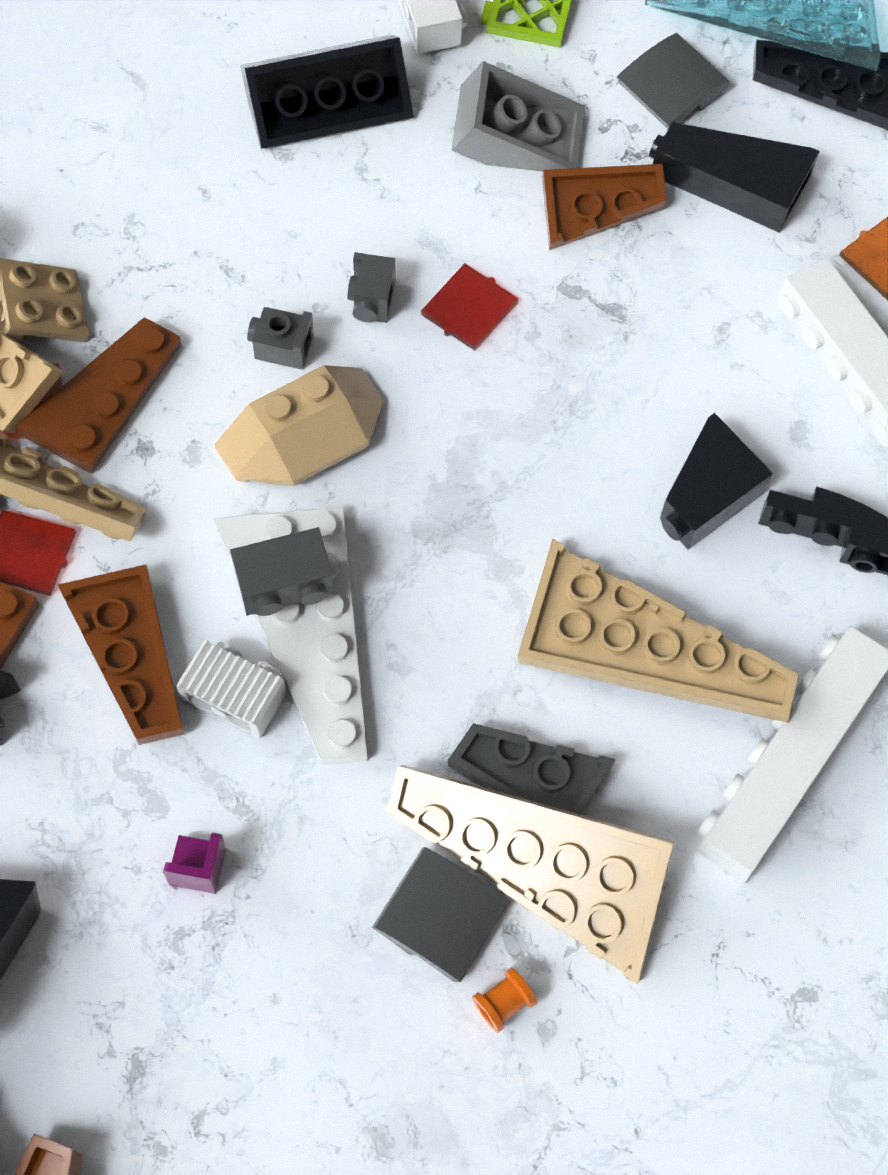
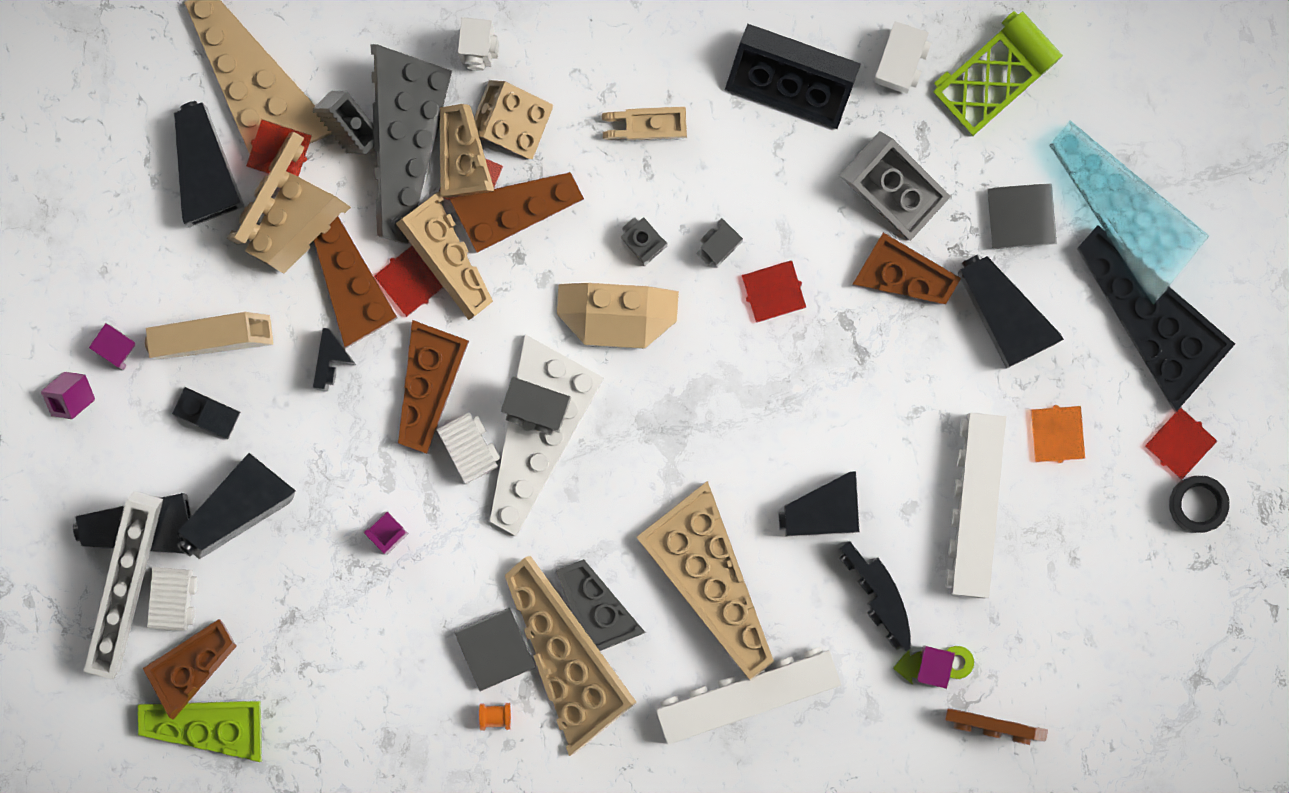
camera: 45 degrees right, 20 degrees up
(197, 224) = (648, 124): none -> tan hinge

